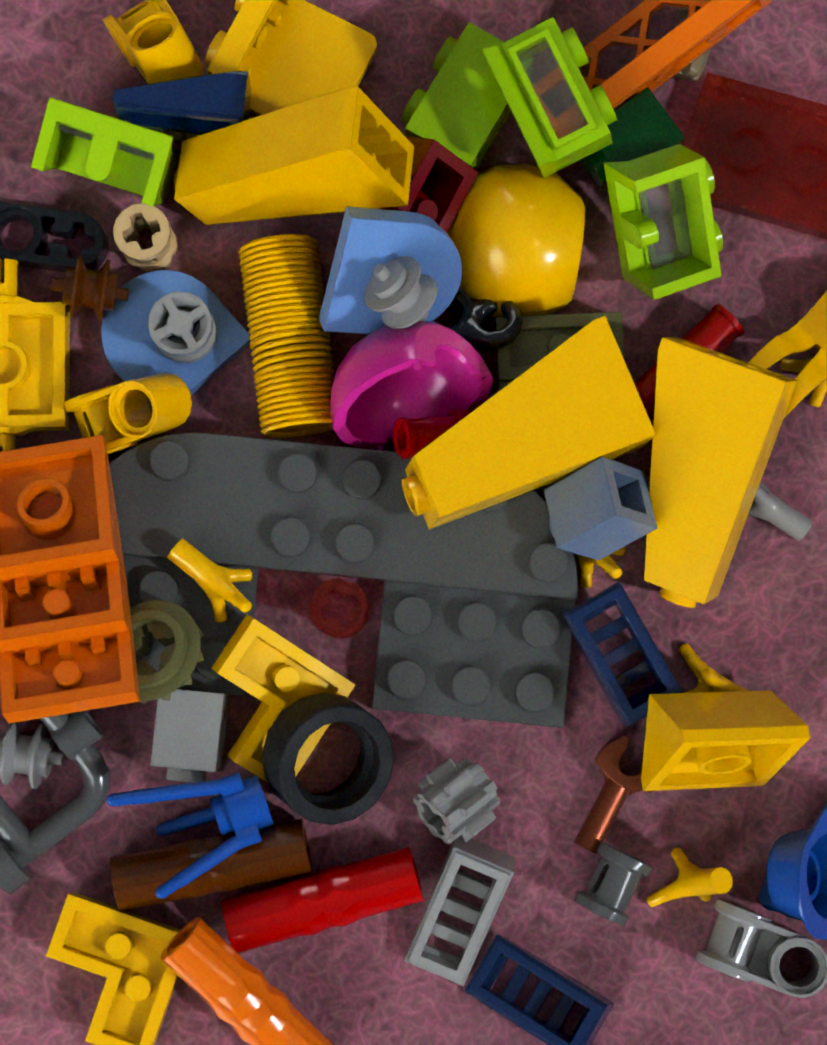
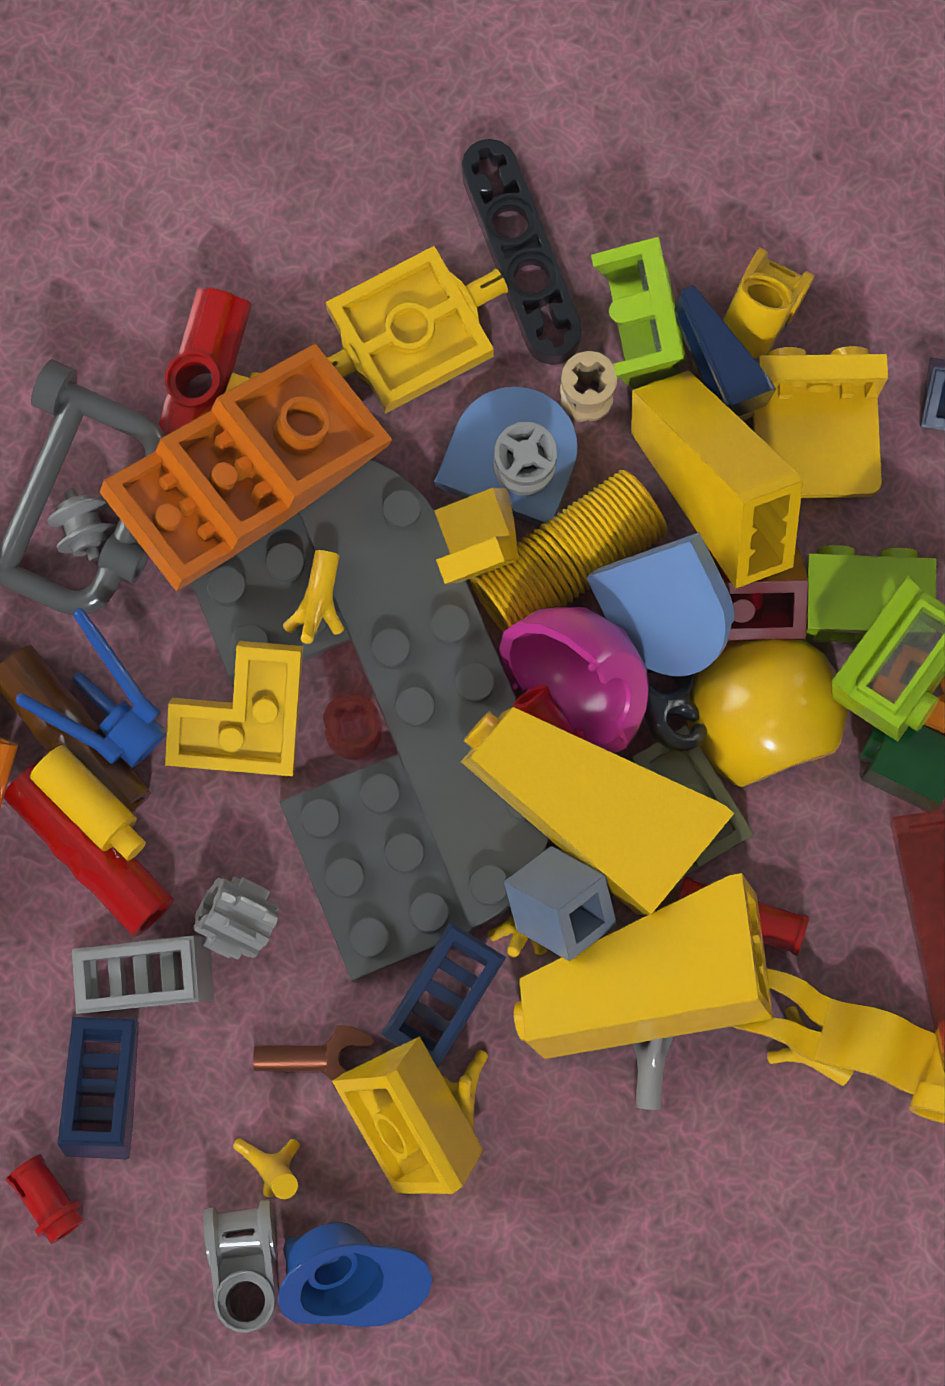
camera: 55 degrees right, 5 degrees down
(90, 289) = (515, 363): reddish brown wheel -> none
(124, 413) = (429, 455): yellow piece -> none
(172, 628) = (255, 589): olive gear -> none
(190, 734) = (174, 655): light grey brick -> none
(233, 406) = (477, 535): none -> yellow slope
(286, 880) = (87, 802): none -> yellow cylinder
(364, 783) = (190, 824): black tyre -> none
(400, 292) = (652, 621): light grey wheel -> none
(613, 884) = (234, 1098): dark grey bush -> none
(665, 220) = (856, 827): lime window -> none

